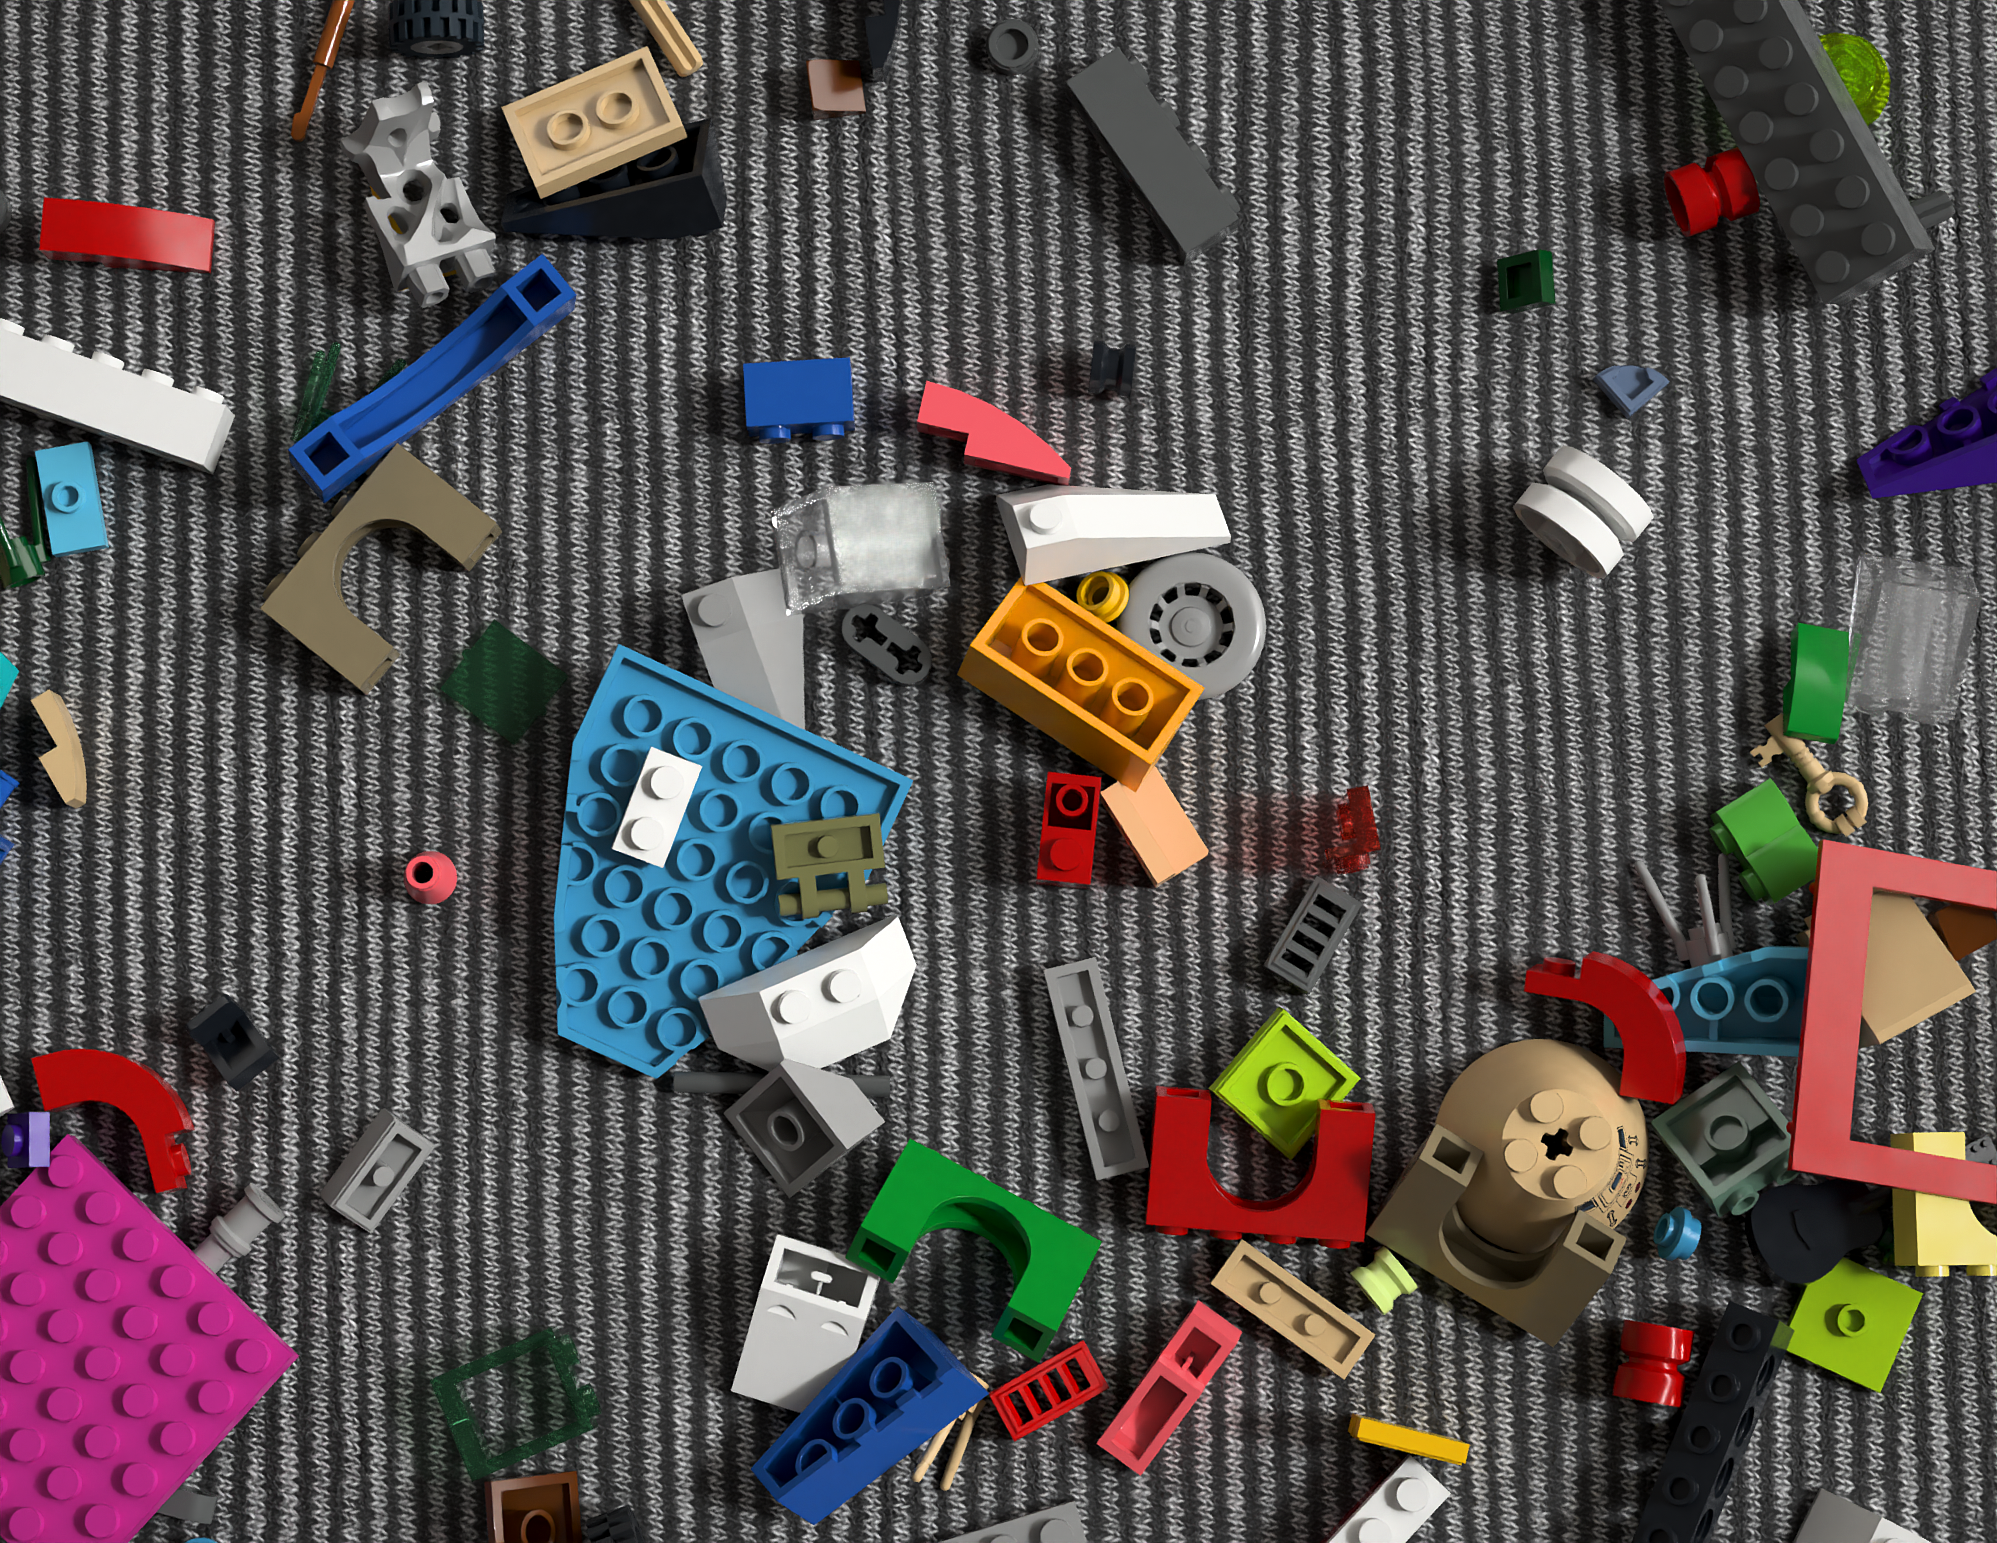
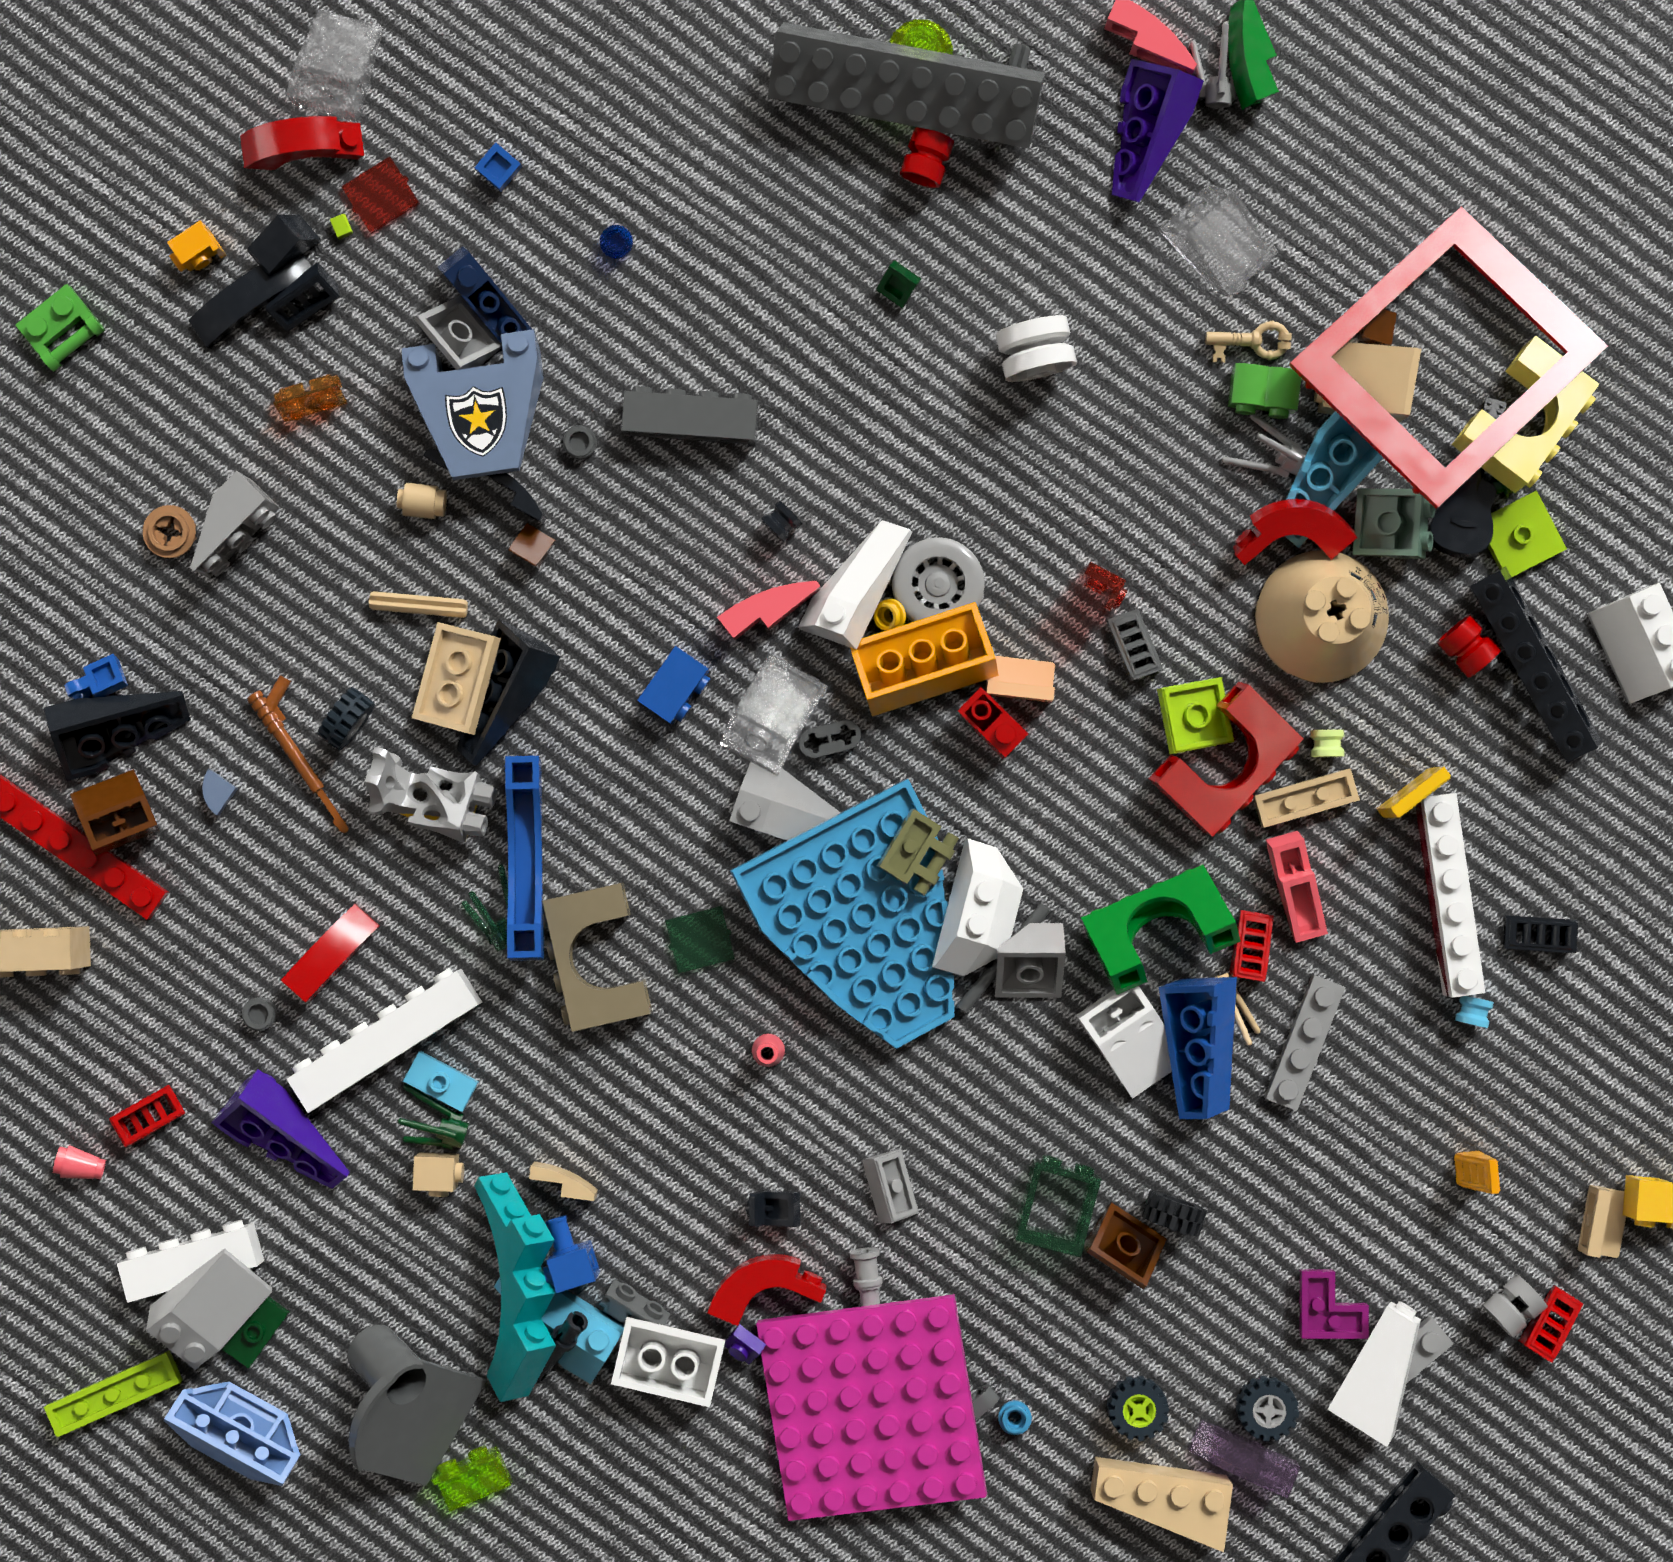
camera: 50 degrees left, 5 degrees up
(656, 807) = (825, 914): white plate -> none
(1096, 1068) = (1116, 801): light grey plate -> none
(1532, 1290) = (1391, 674): dark tan arch -> none
(1630, 386) = (989, 275): sand blue tile -> none
(1677, 1234) = (1416, 585): dark azure plate -> none
(1817, 683) = (1207, 302): green slope -> none

